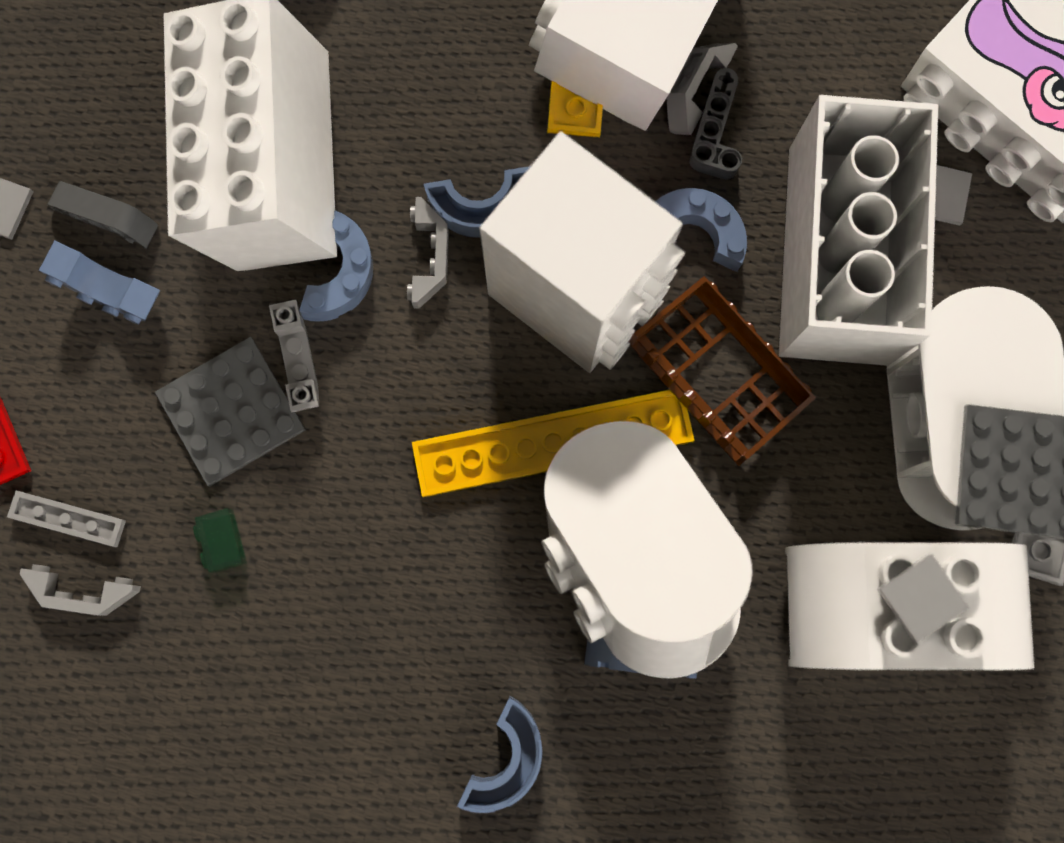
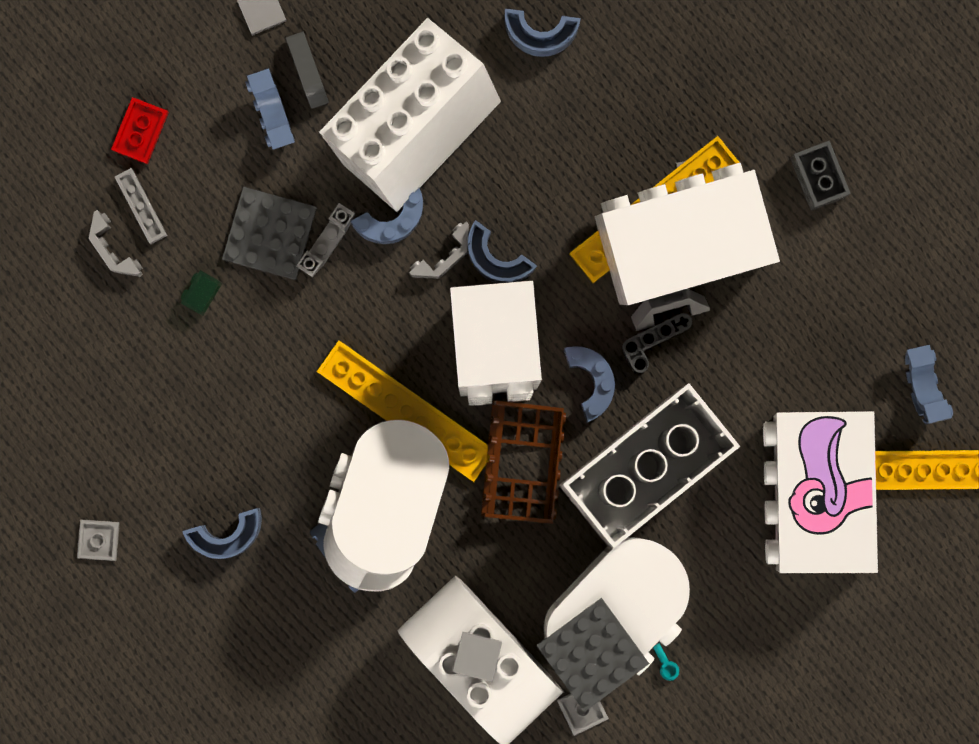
camera: 45 degrees right, 5 degrees up
(951, 194) = (730, 490): light grey tile -> none

